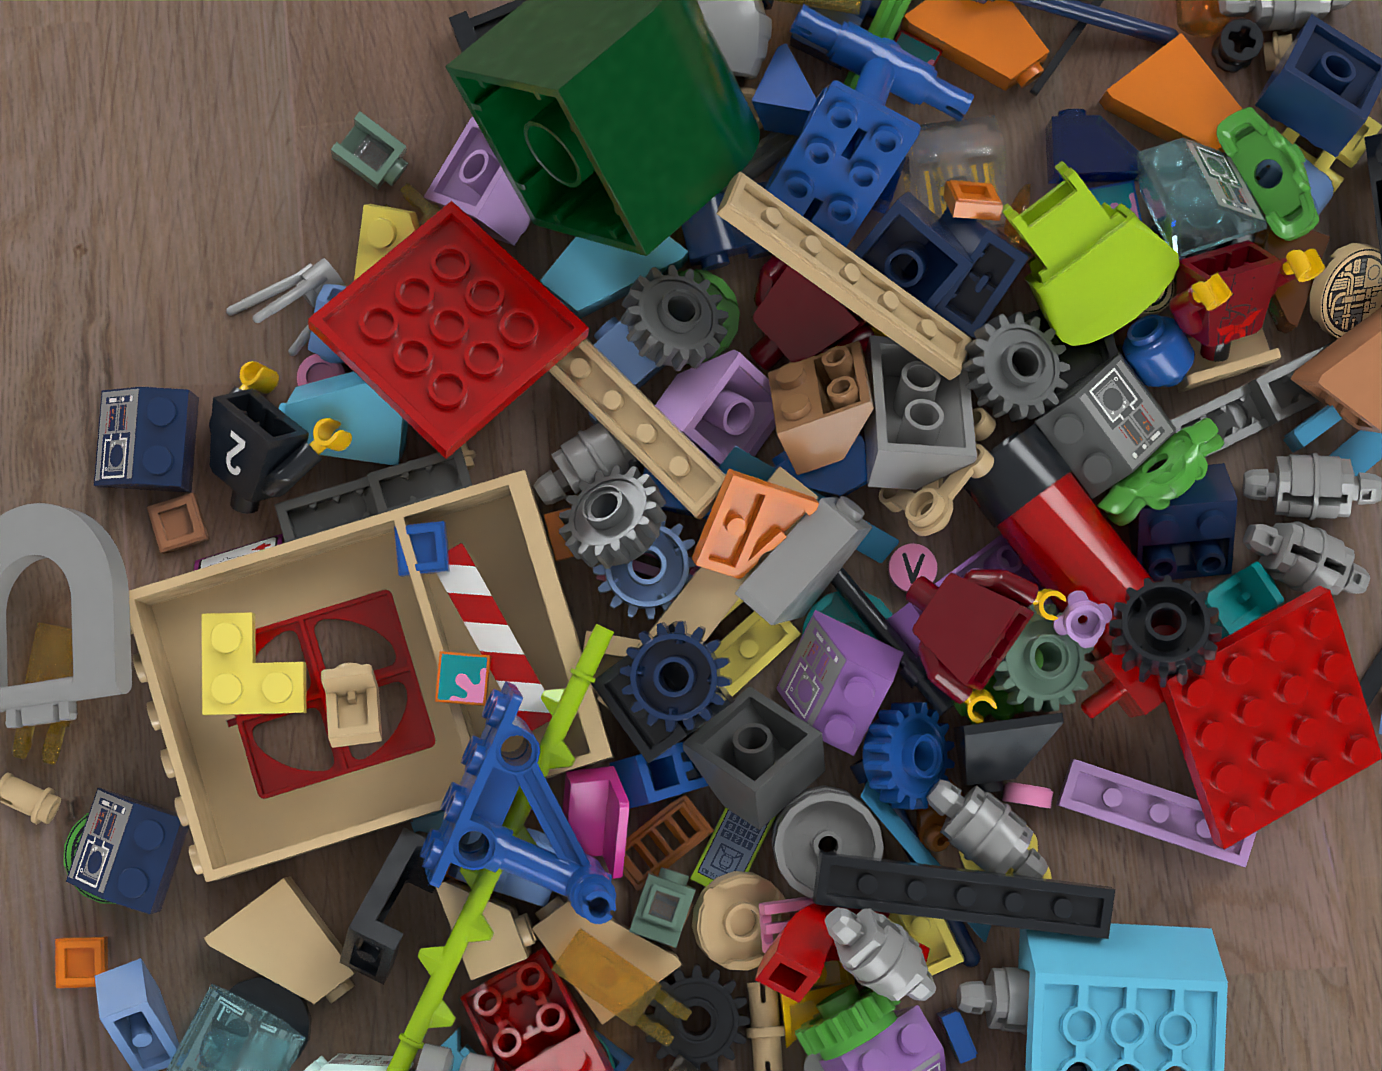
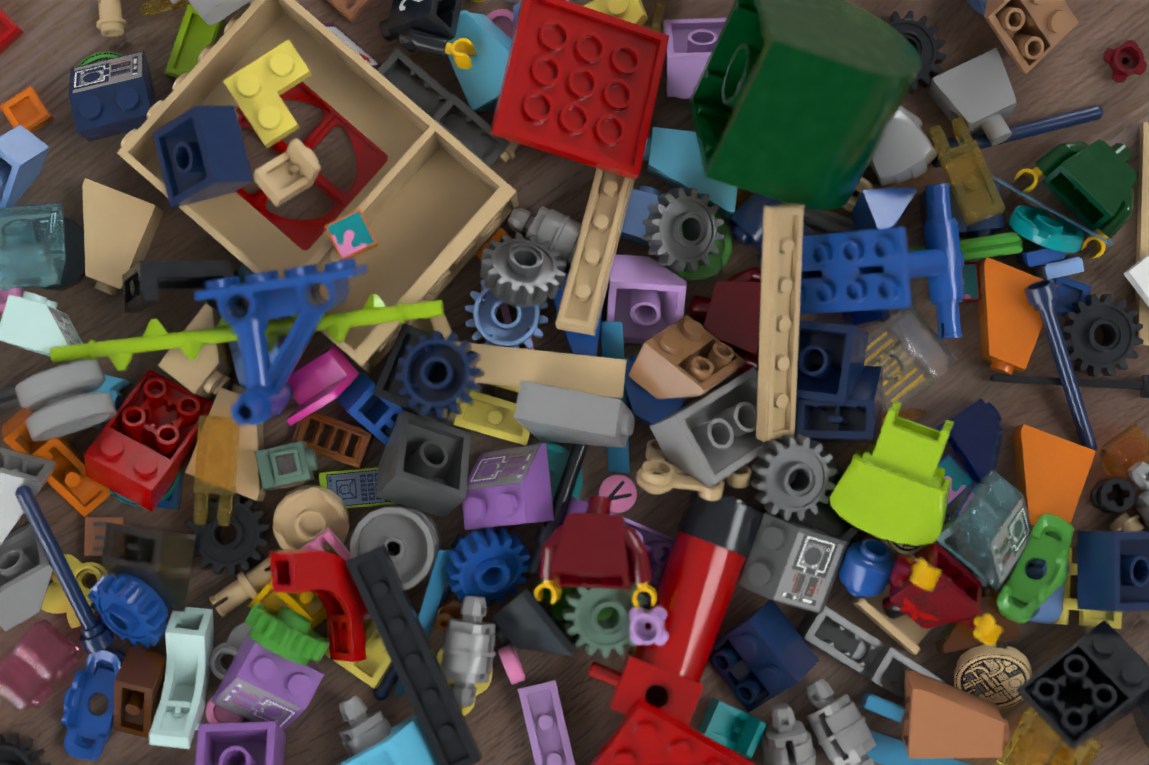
camera: 60 degrees right, 0 degrees up
(125, 731) = (190, 42): none -> lime tile
(272, 787) = (202, 155): none -> dark blue slope
(430, 548) = (426, 162): blue tile -> none
(493, 634) = (394, 237): sticker -> none
(747, 522) = (574, 360): orange wing -> none
(880, 954) = (337, 626): light grey piece -> none
(957, 1034) = (322, 714): blue tile -> none
(972, 200) = (889, 379): orange tile -> none
(1159, 654) = (658, 699): black gear -> none
(1183, 466) = (770, 623): bright green piece -> none

